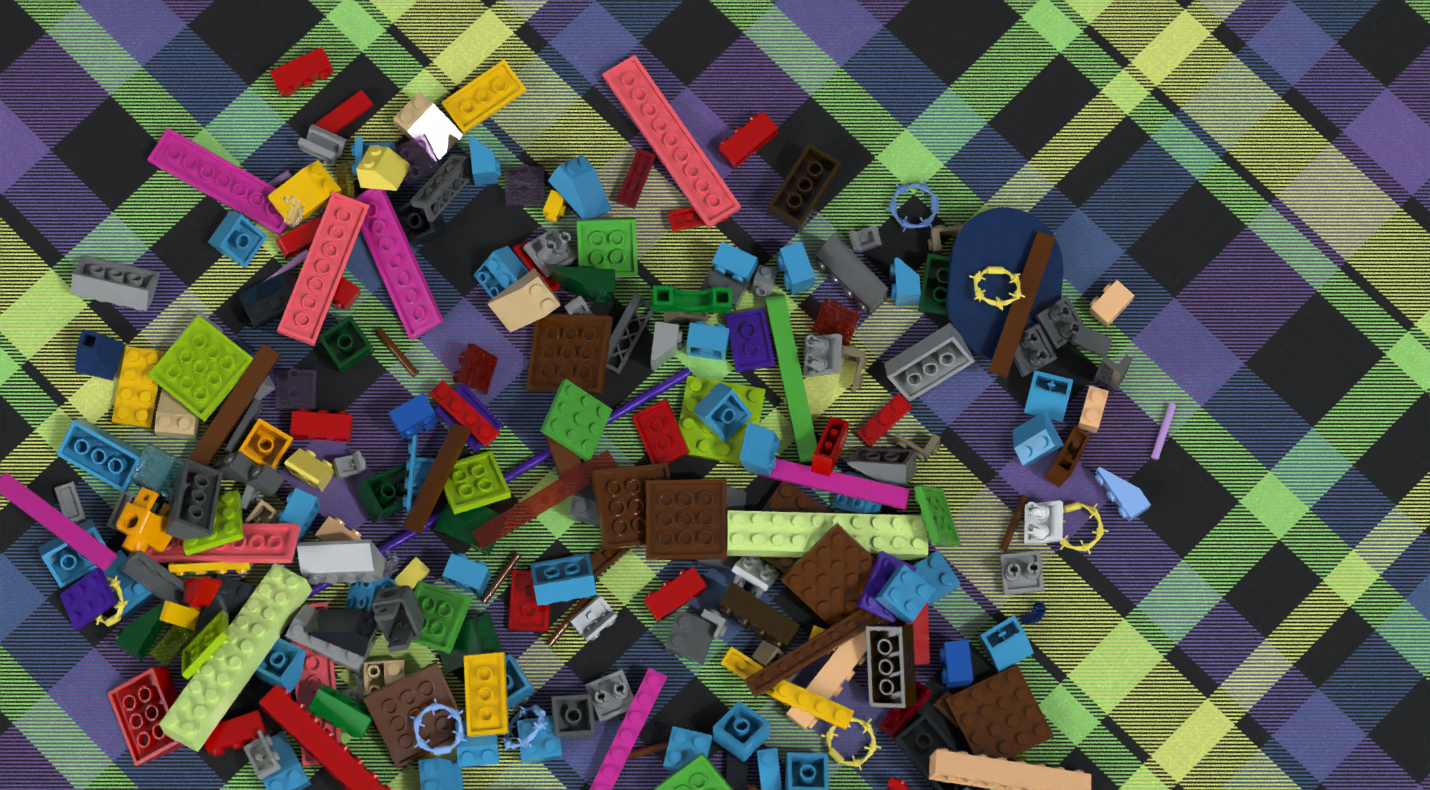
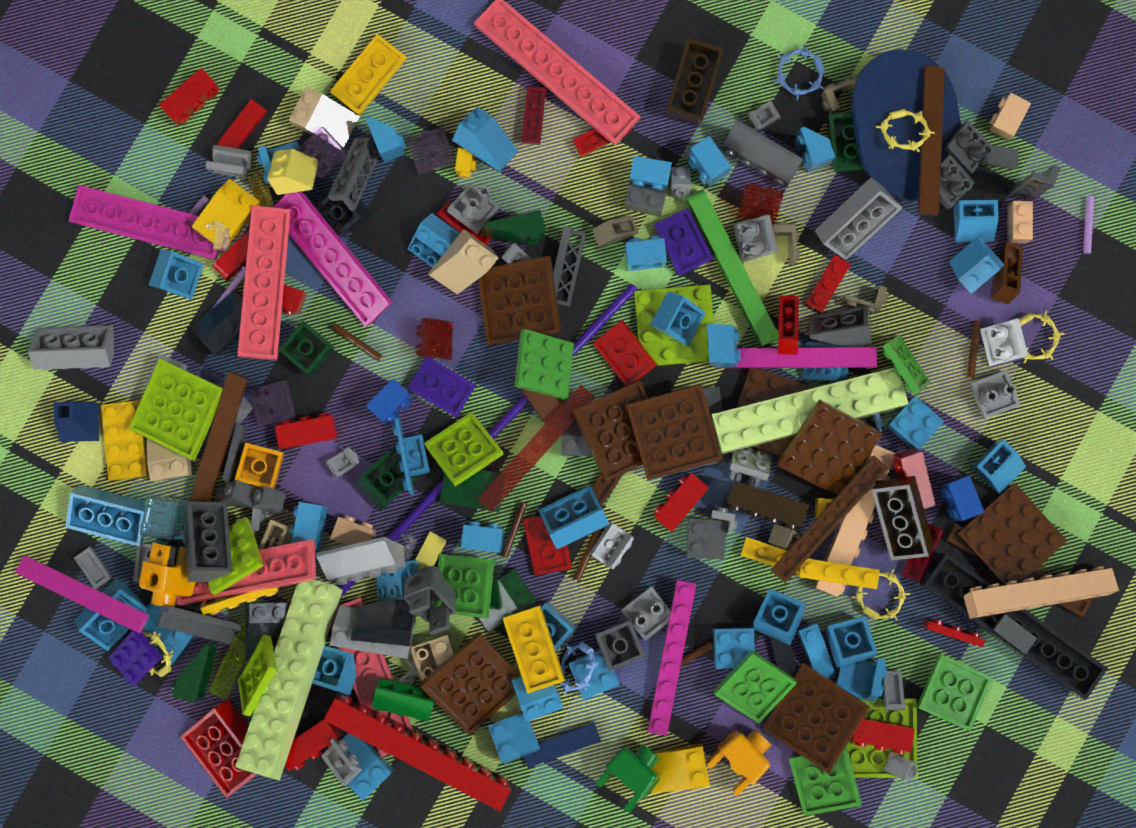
camera: 10 degrees left, 10 degrees up
(179, 615) = (225, 651): yellow tile -> none
(200, 591) = (238, 626): red slope -> none
(310, 469) = (307, 476): light yellow slope -> none
(436, 478) = (429, 455): reddish brown tile -> none
(441, 749) = (507, 711): light blue piece -> none
(464, 413) = (436, 384): red plate -> none
(608, 244) = (526, 187): bright green plate -> none
(665, 343) = (606, 266): light grey slope -> none
(706, 301) = (630, 219): green arch -> none
(748, 139) = (627, 49): red brick -> none
(881, 572) = (879, 446): dark purple plate -> none
(905, 594) = (902, 450): dark azure brick -> none
(1036, 614) = (1017, 430): clear blue arm -> none
(1127, 496) = (1072, 296): light blue slope -> none

